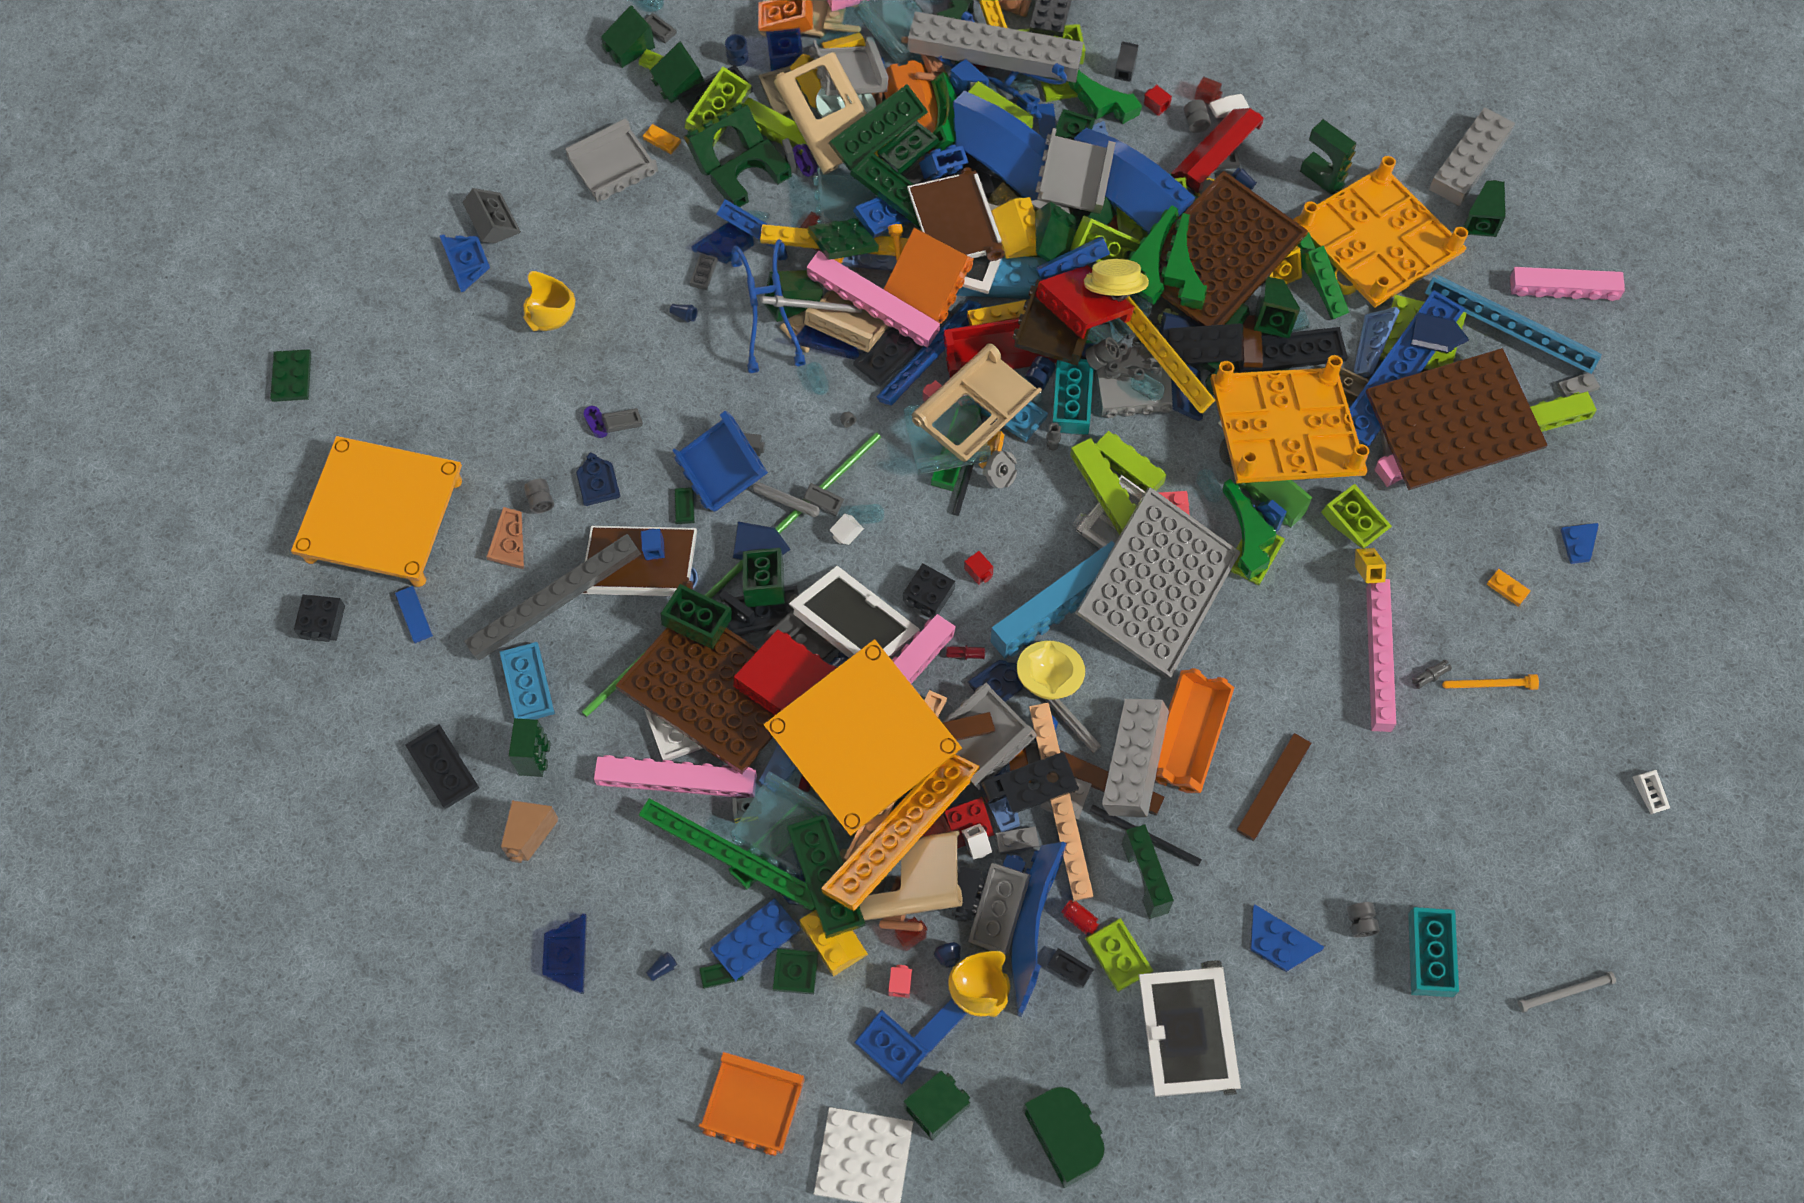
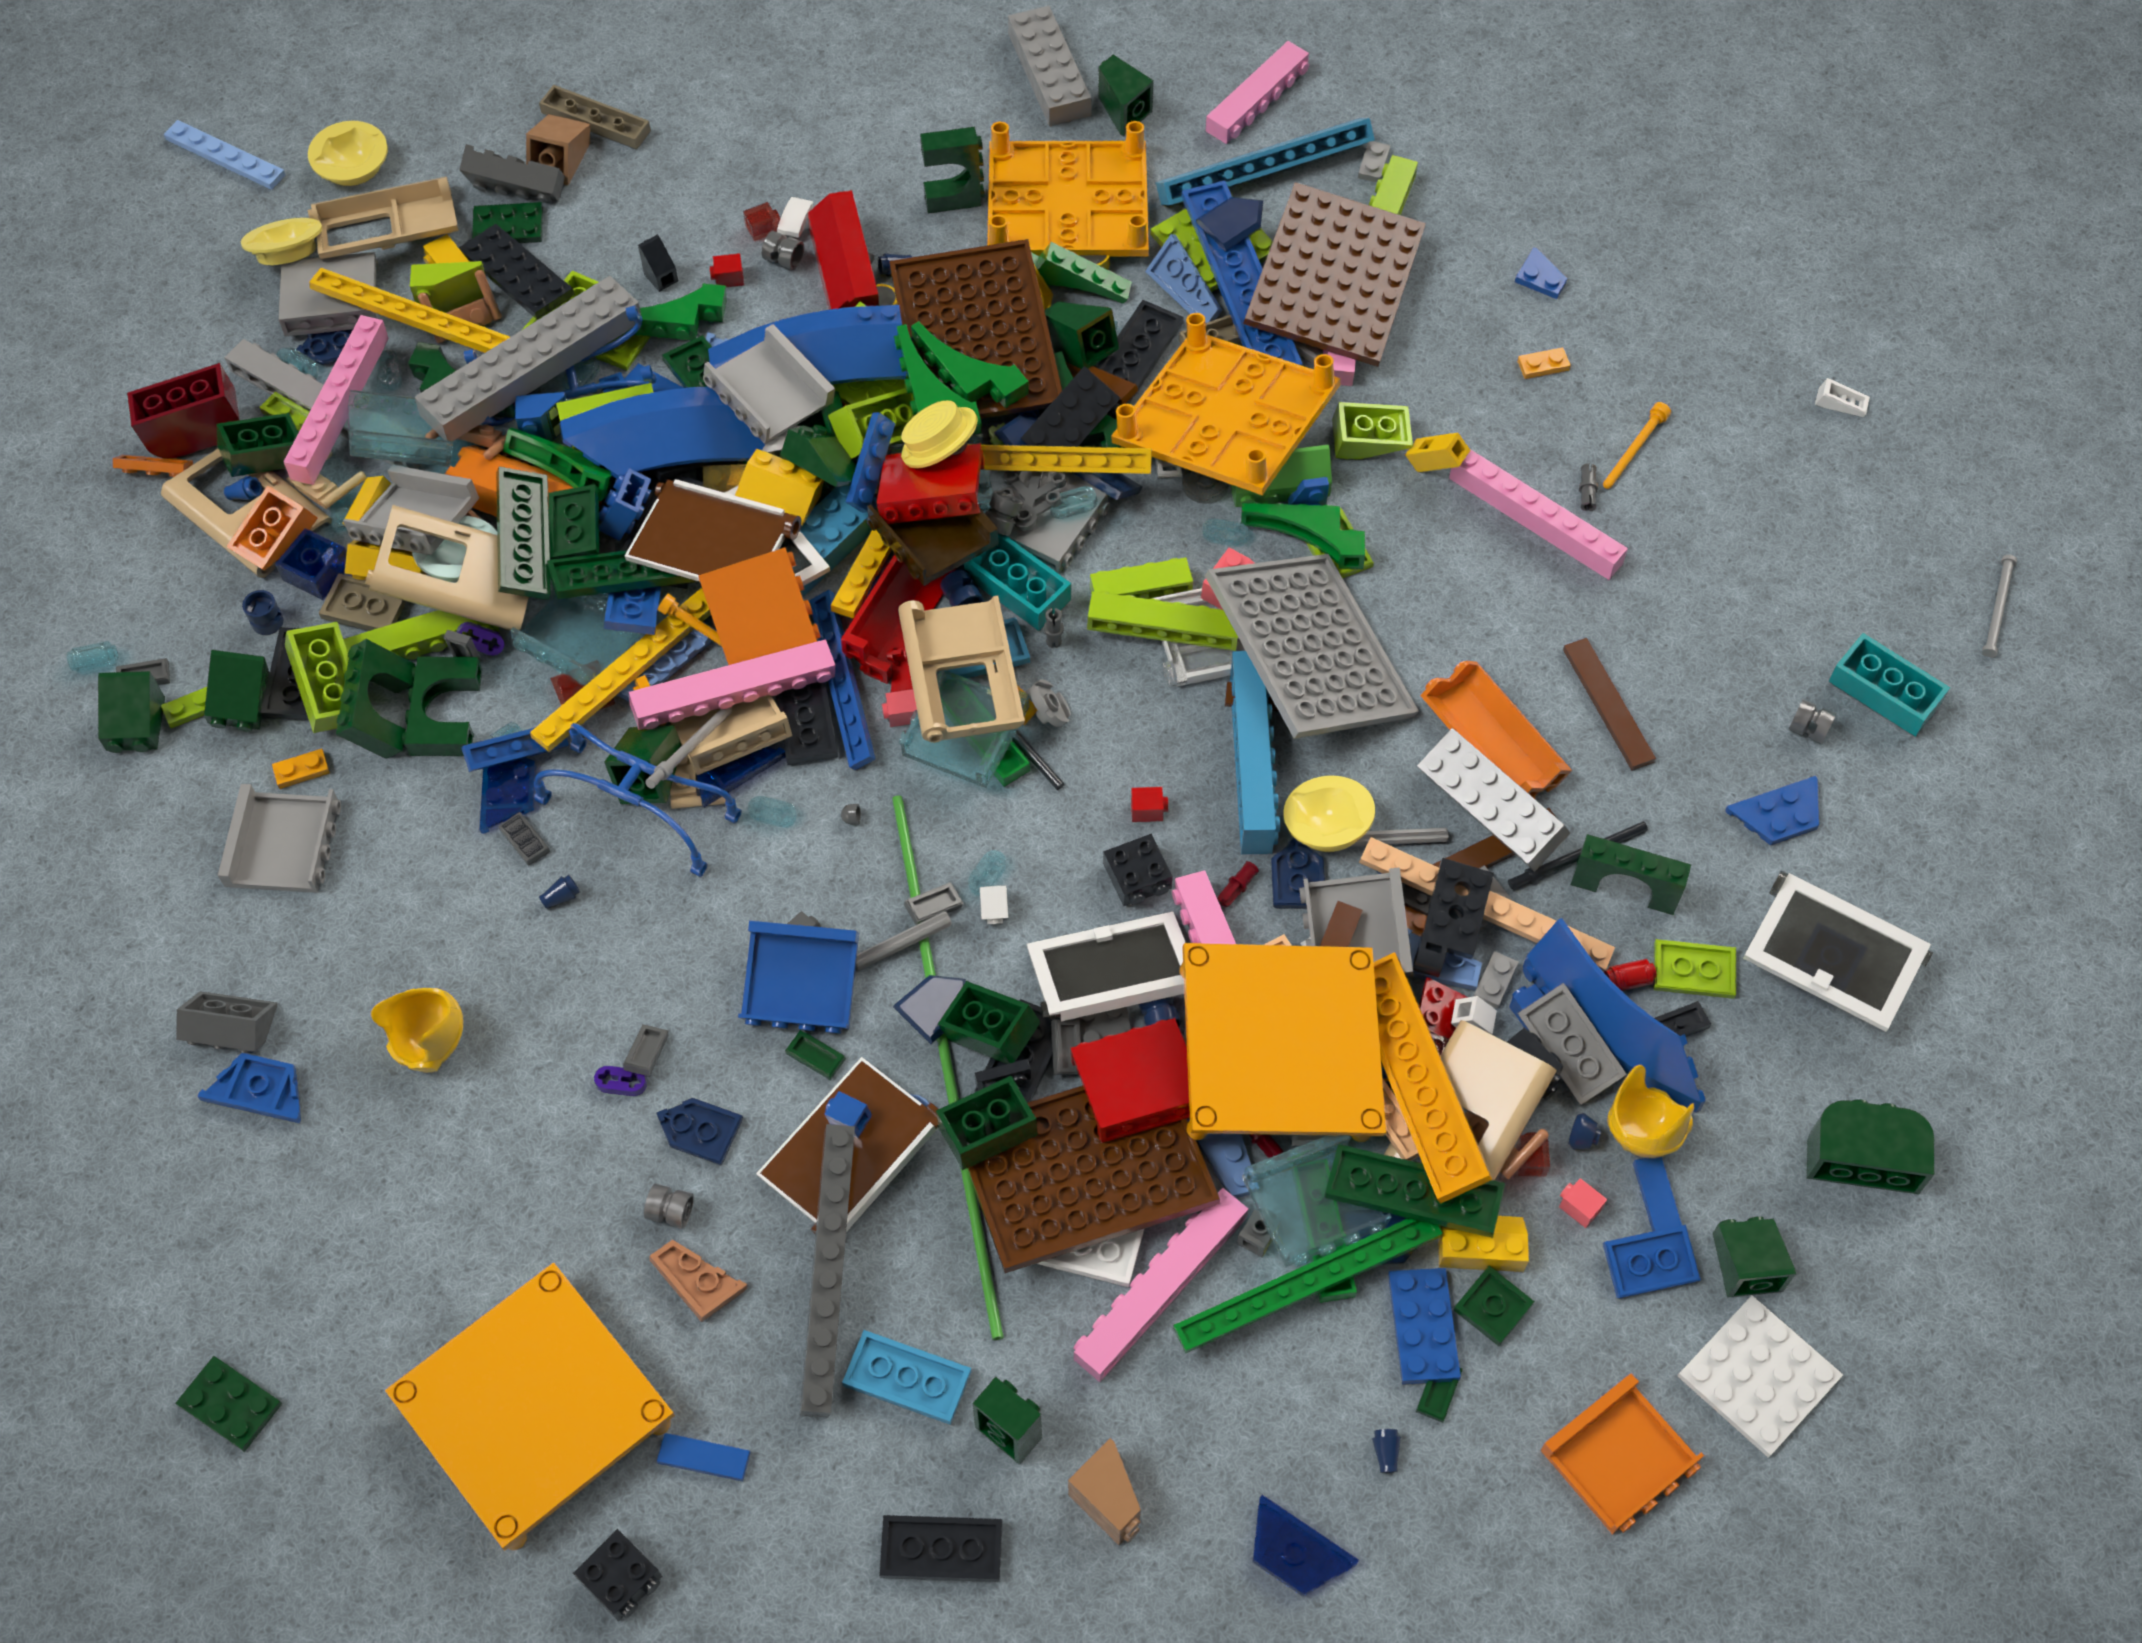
camera: 55 degrees left, 5 degrees down
(843, 238) = (631, 661): dark green plate -> none

